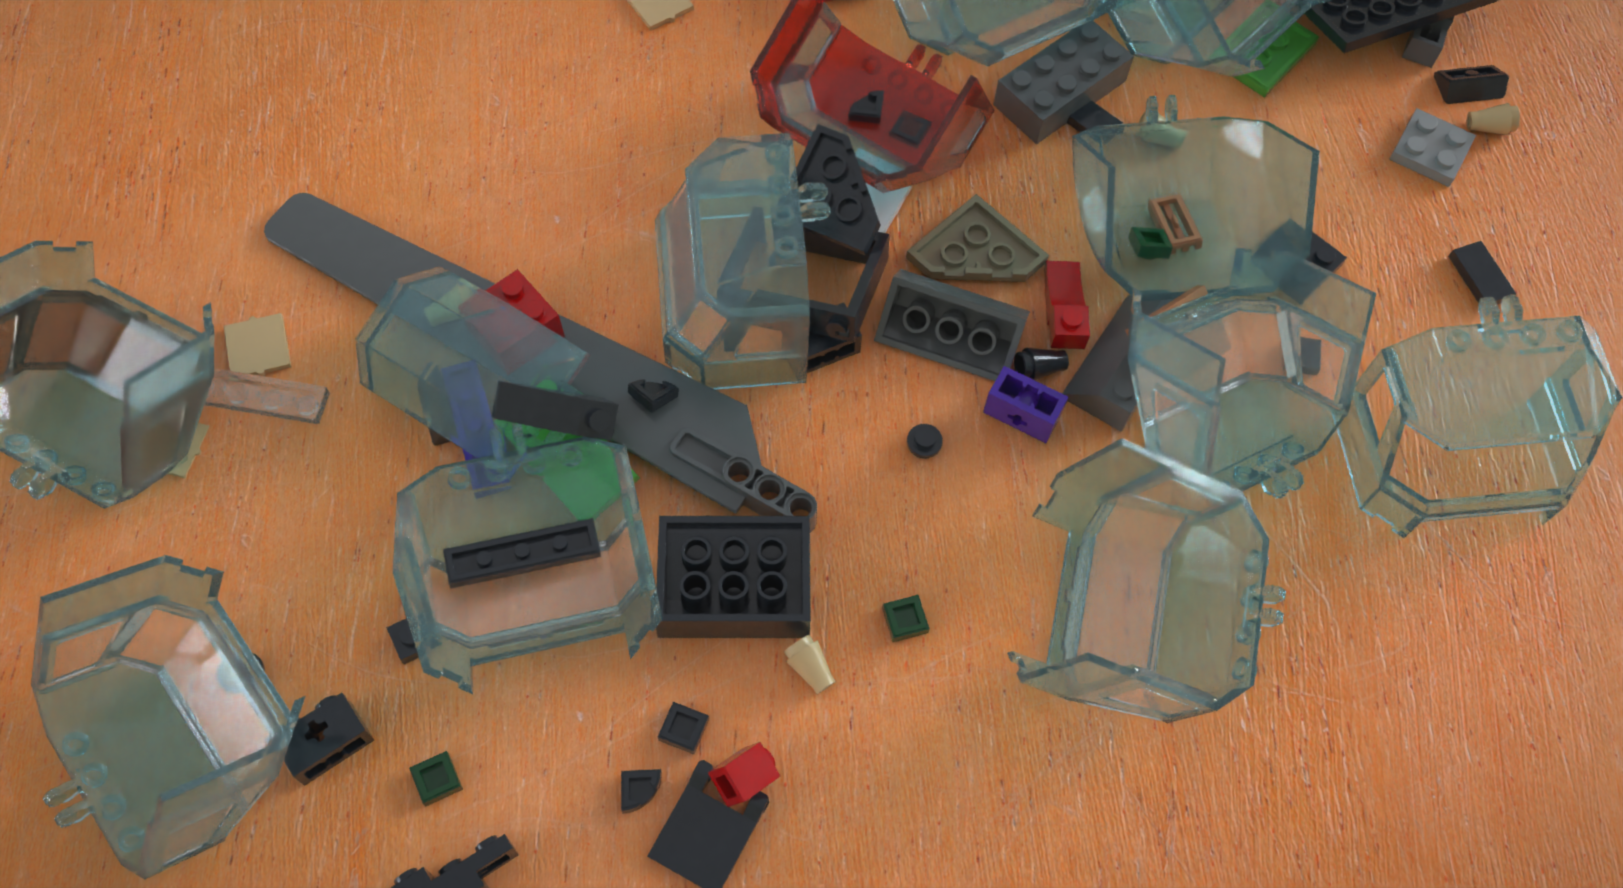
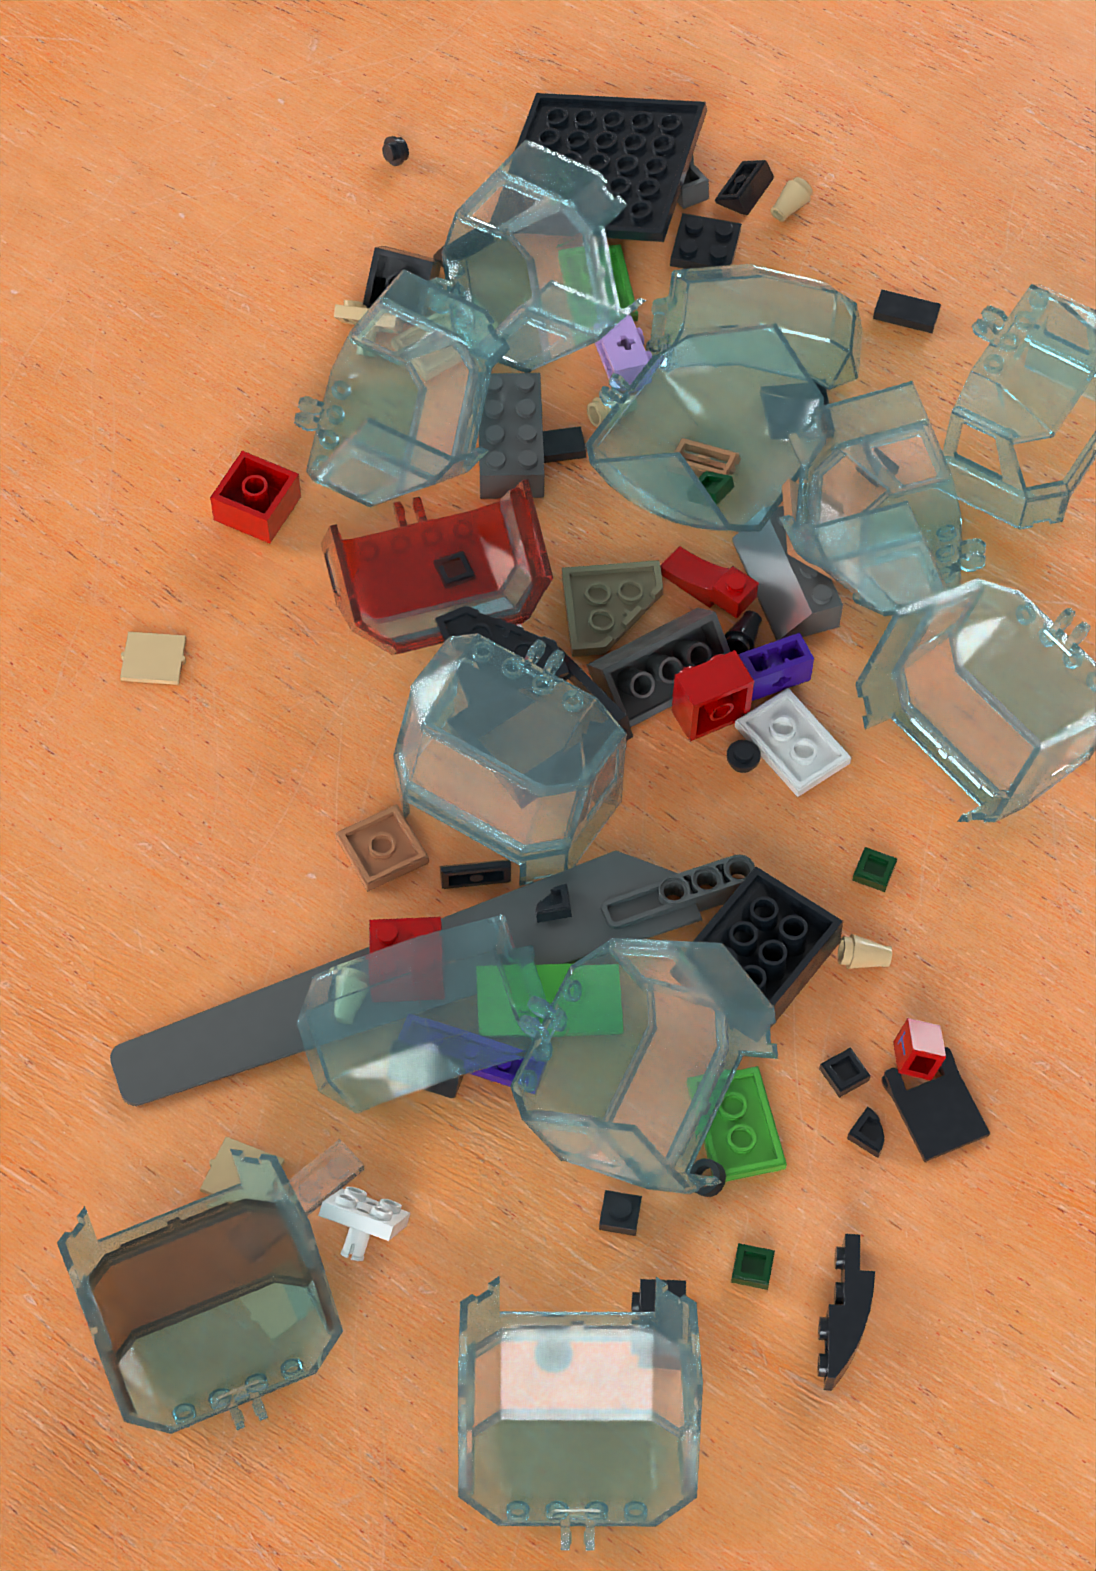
camera: 50 degrees left, 5 degrees down
(252, 447) = (363, 1218): none -> white plate
(497, 688) = (718, 1171): none -> black piece
(521, 553) = (625, 1071): black tile -> none
(555, 410) = (537, 967): black slope -> none
(562, 682) = (744, 1130): none -> bright green tile
(616, 247) = (382, 847): none -> nougat tile
(641, 318) = (475, 873): none -> black slope
(867, 108) = (412, 582): black tile -> none
(950, 374) = (711, 695): none -> red brick
(973, 471) = (793, 742): none -> white tile
(1222, 97) = (624, 351): none -> lavender brick
(1369, 186) = (810, 313): none -> clear light blue windscreen
(1384, 93) = (704, 242): none -> black plate
(1432, 147) = (779, 249): light grey plate -> none

